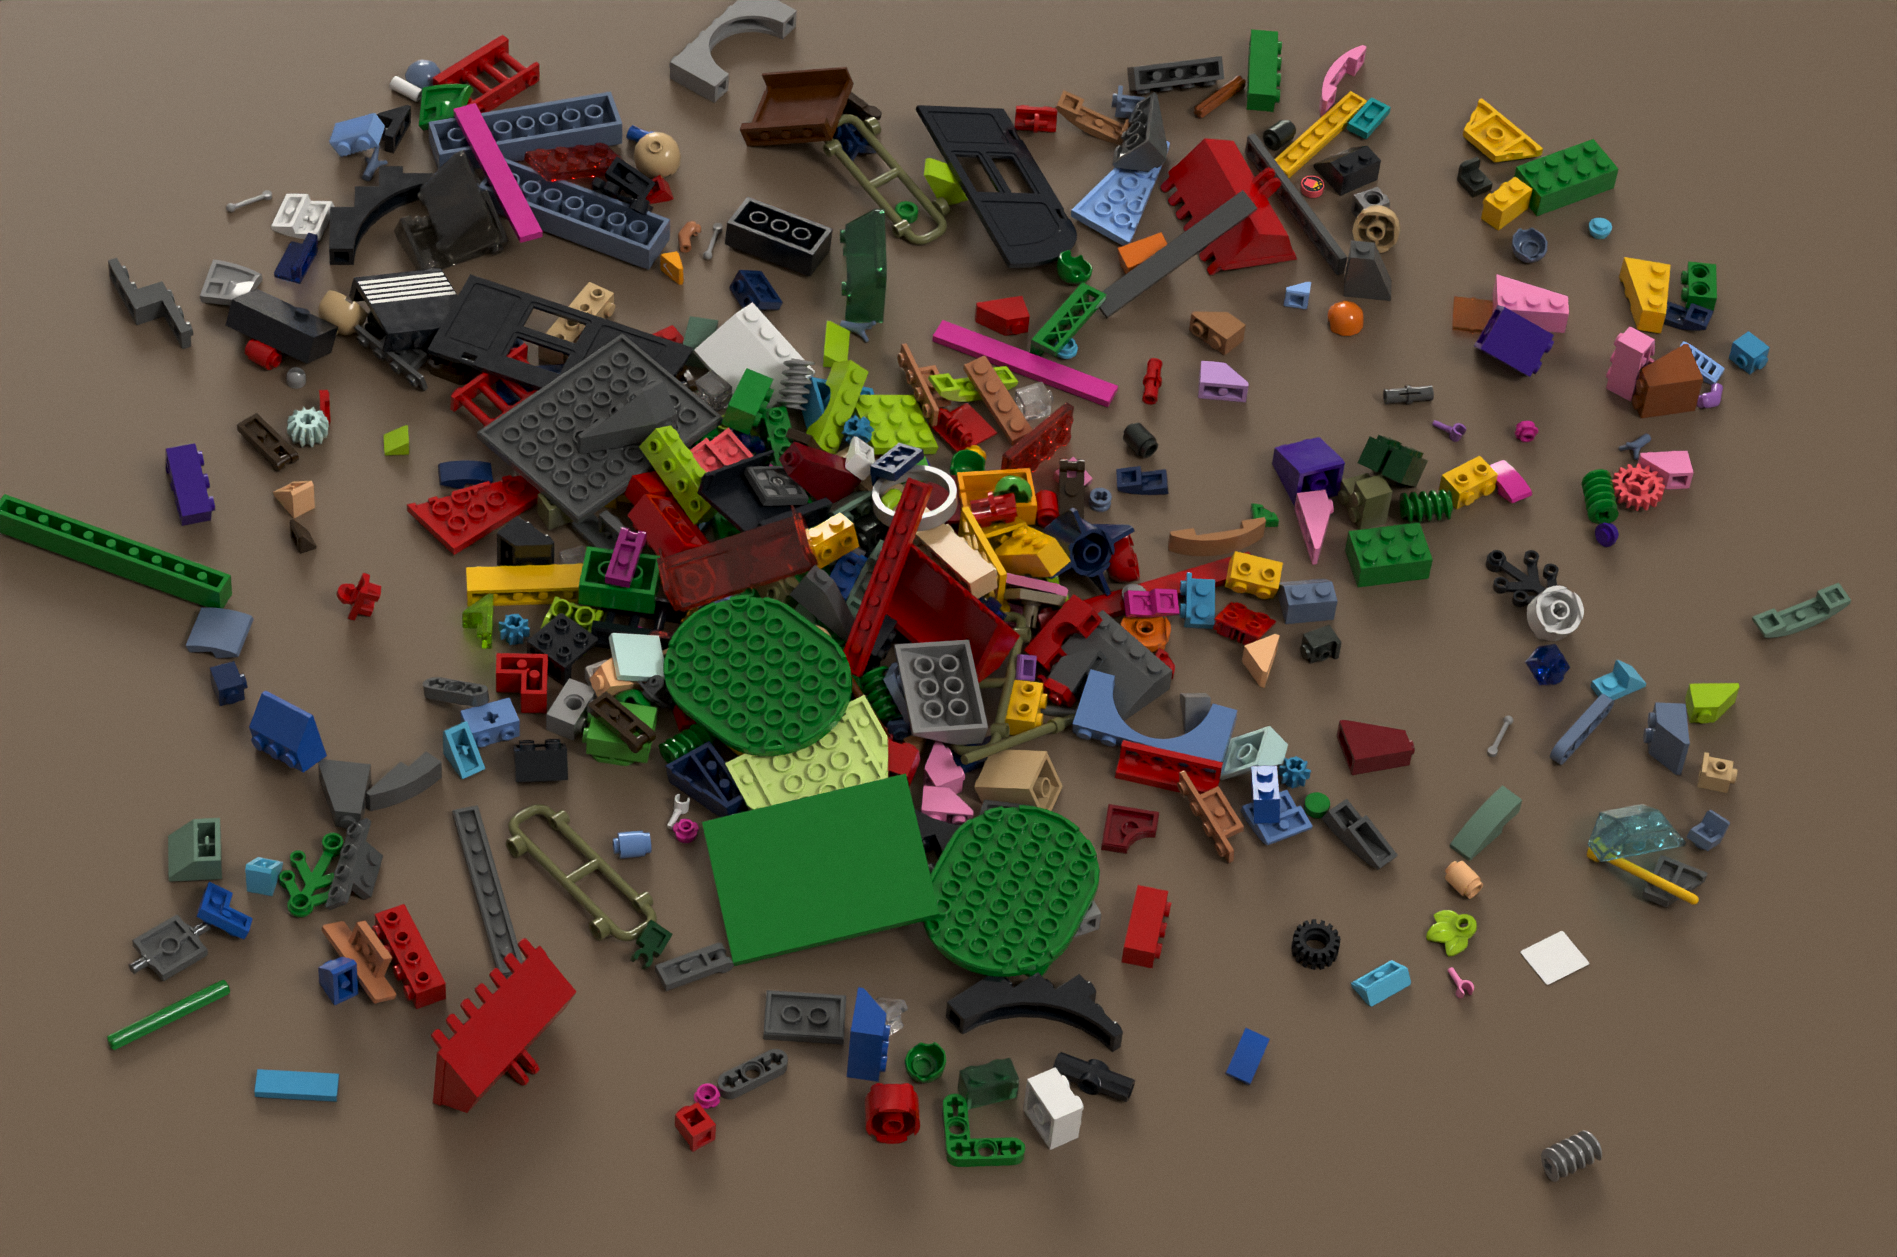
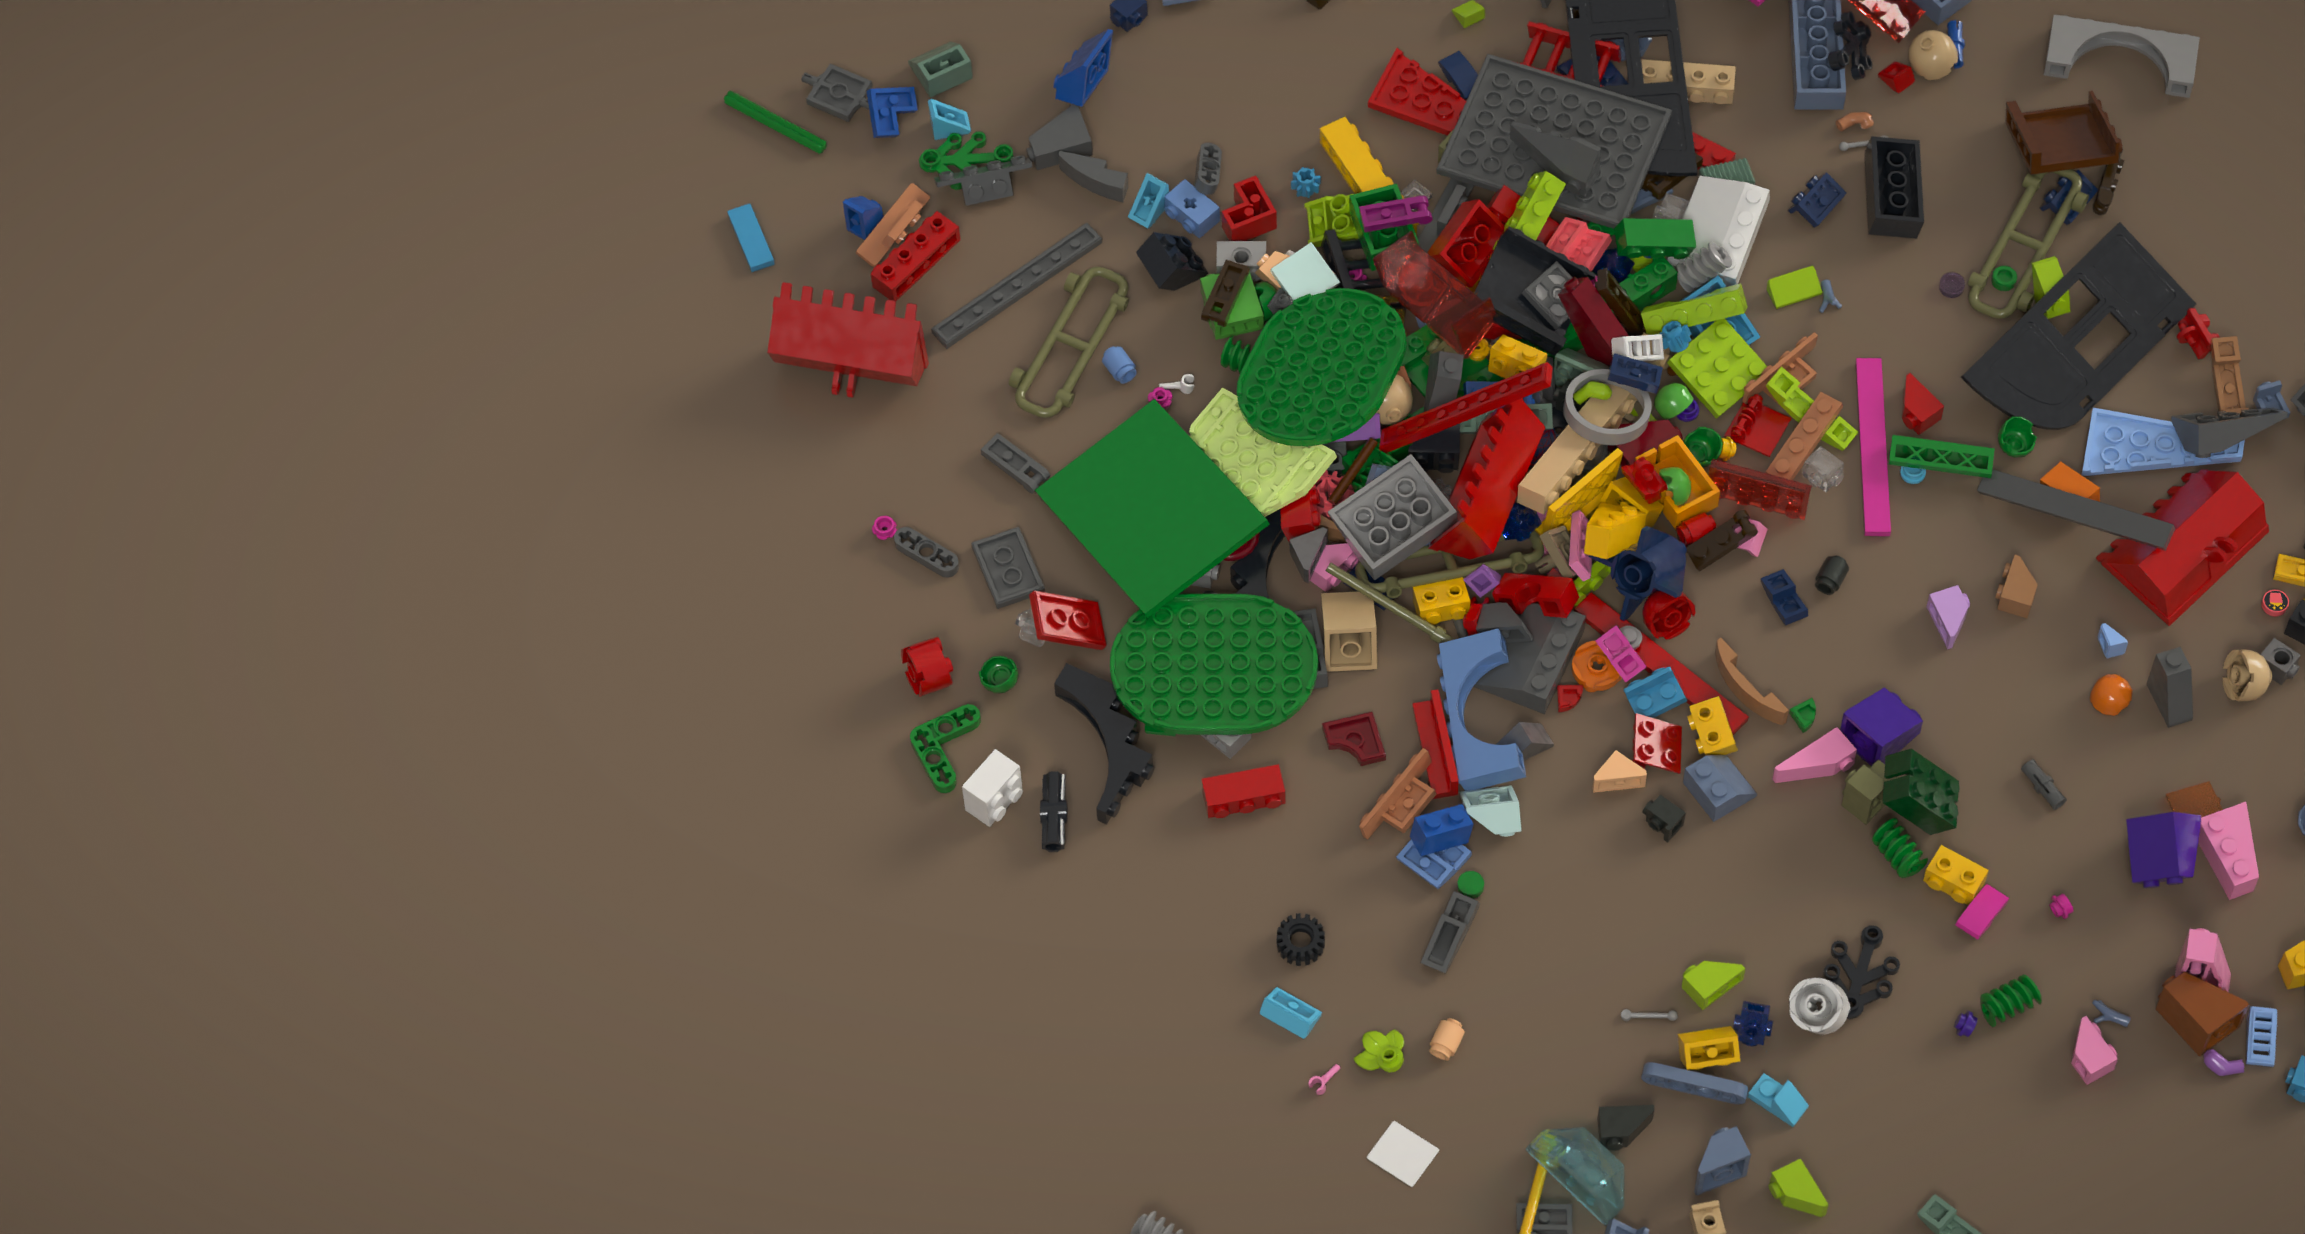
camera: 75 degrees right, 10 degrees up
(360, 597) = (1268, 56): red hips -> none
(480, 617) = (1307, 155): clear neon green slope -> none
(523, 545) = (1391, 146): black slope -> none
(564, 644) = (1300, 220): black bracket -> none
(628, 179) = (1882, 44): black slope -> none
(652, 943) = (1024, 421): dark green plate -> none
(672, 266) = (1806, 124): light orange slope -> none
(695, 1126) = (837, 529): red brick -> none
(707, 781) = (1212, 376): dark blue wedge -> none
(865, 267) = (1889, 257): clear green windscreen -> none
(868, 1039) = (986, 611): blue slope -> none
(894, 247) = (1952, 285): none -> tile
(901, 983) = (1067, 620): none -> red tile
(937, 774) = (1307, 551): none -> flat silver slope
(945, 805) = (1287, 582): bright pink slope -> none
(988, 1083) = (1001, 730): clear green brick -> none
(1100, 494) = (1734, 565): sand blue bush -> none
(1152, 381) = (1932, 554): red pin -> none
(1247, 1056) = (1140, 926): blue slope -> none
(1294, 772) = (1494, 849): dark azure gear -> none
(1298, 207) = (2240, 588): dark grey tile -> none
(1373, 747) = (1562, 906): dark red slope -> none
(1388, 554) = (1814, 836): green brick -> none
(1455, 432) = (2022, 837): medium lavender hand -> none
(1486, 823) = (1524, 1036): sand green slope -> none
(1493, 680) = (1711, 981): none -> lime slope
(1557, 702) = (1709, 1048): none -> yellow brick
(1600, 792) = (1622, 1124): none -> pearl dark grey slope
(1638, 487) = (2047, 1028): coral gear -> none

